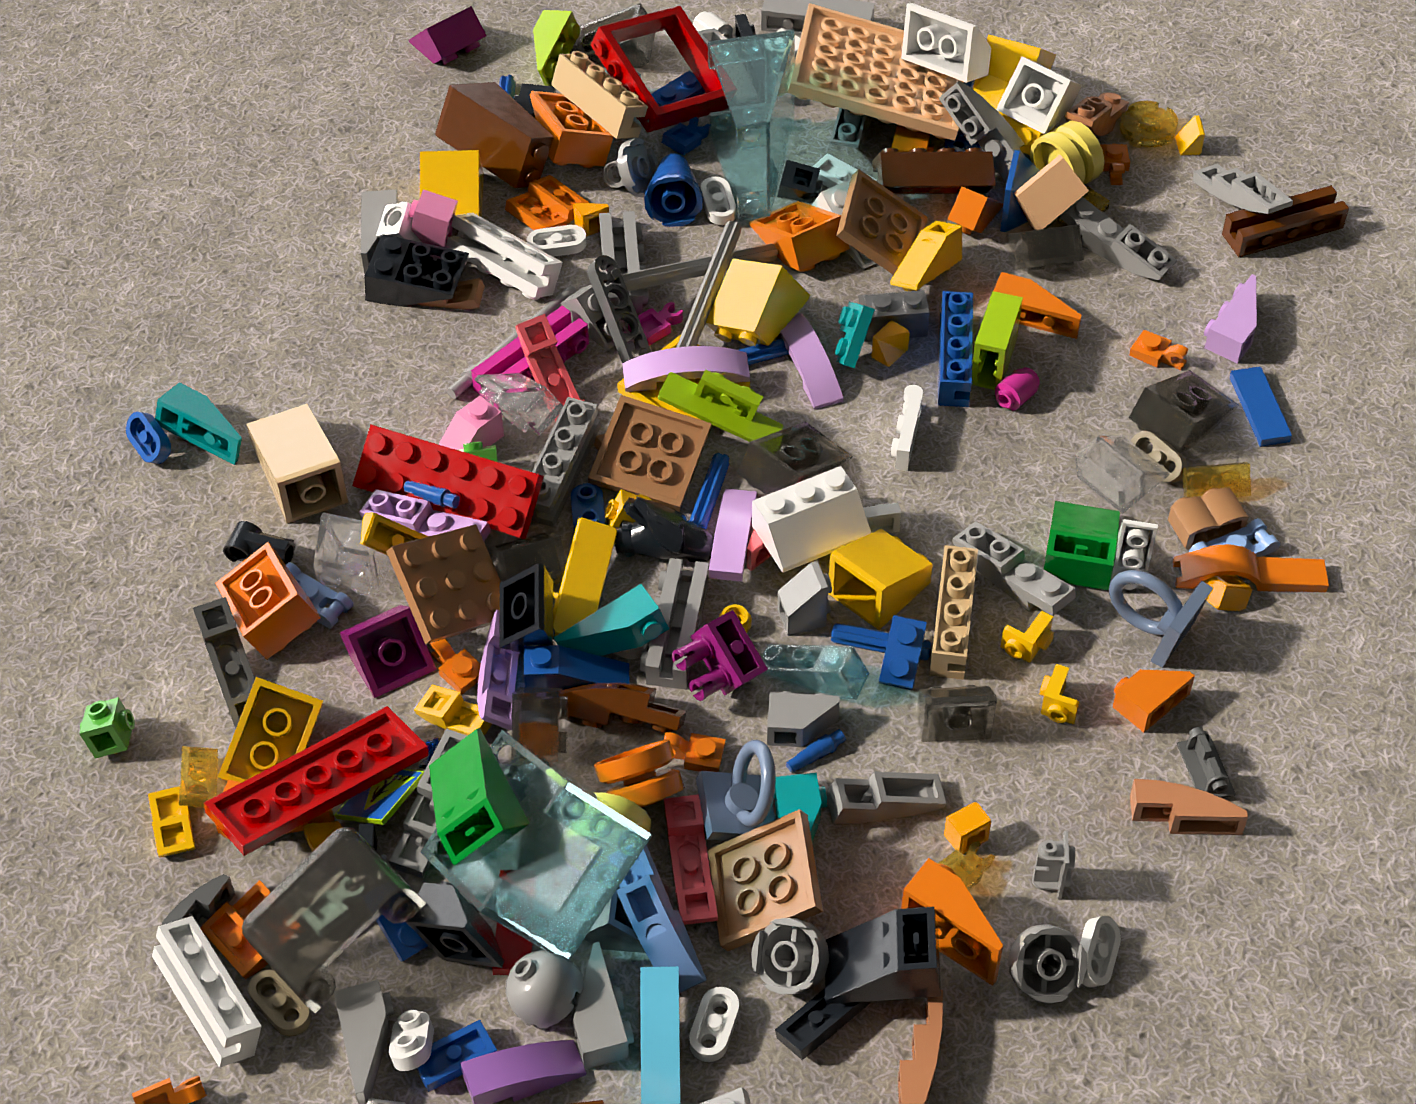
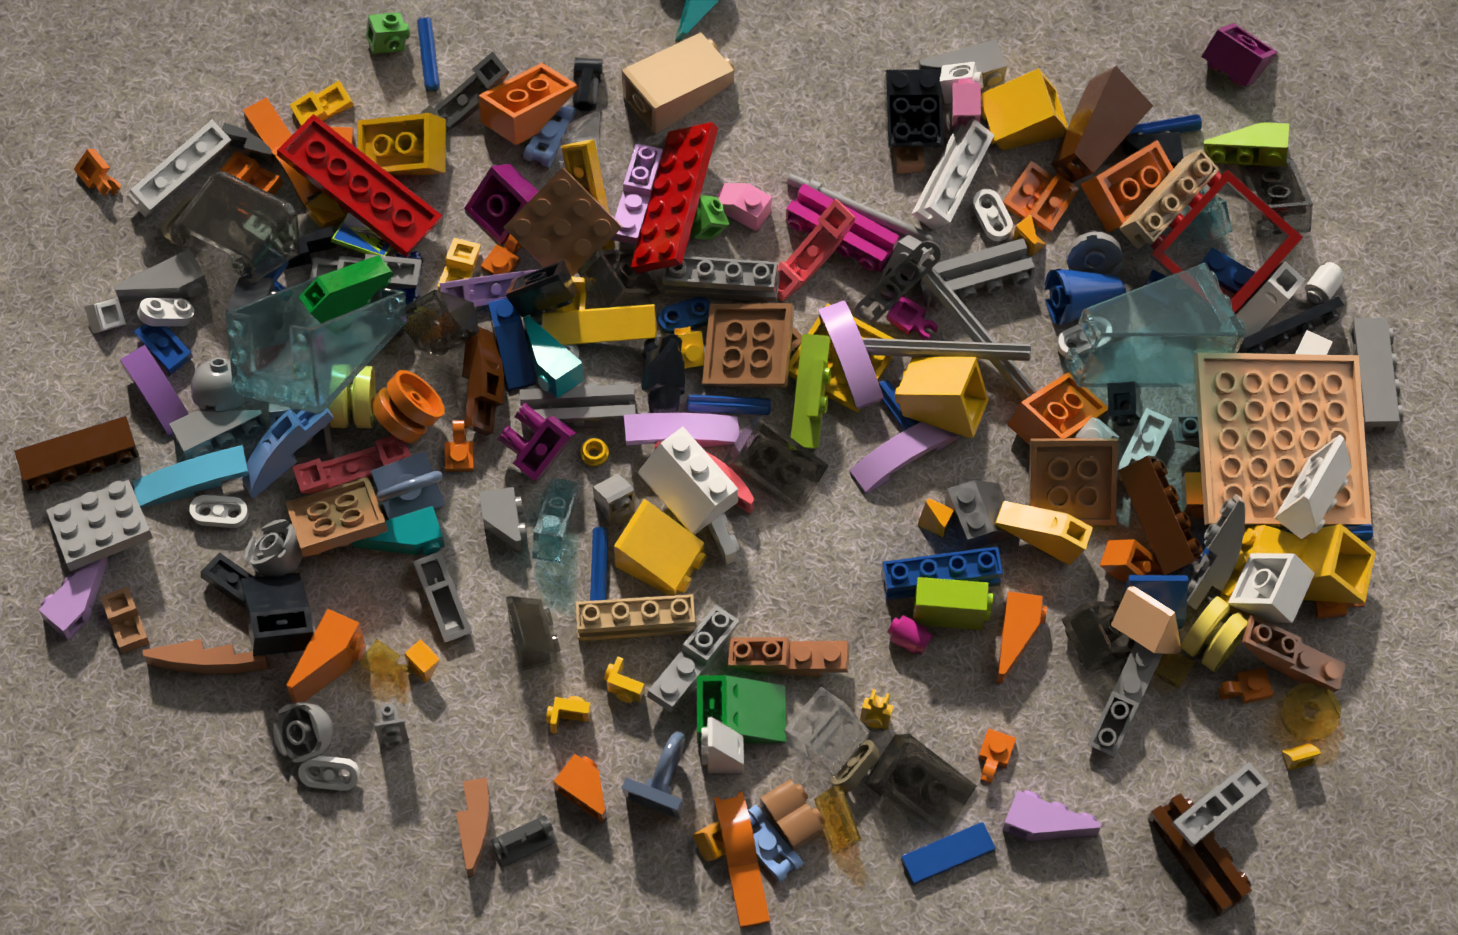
camera: 75 degrees right, 15 degrees up
(152, 698) = (428, 54): none -> blue axle
(170, 887) = (274, 133): none -> orange piece
(197, 775) = (359, 106): clear yellow plate -> none
(434, 494) = (652, 191): blue animal -> none
(520, 400) = (772, 226): clear slope -> none
(817, 750) = (480, 539): blue animal -> none
(855, 322) = (934, 479): teal plate -> none
(903, 652) = (584, 584): blue plate -> none
(907, 427) = (837, 549): white plate -> none
(1025, 485) = (788, 657): none -> nougat slope
(1103, 419) = (876, 711): none -> yellow plate

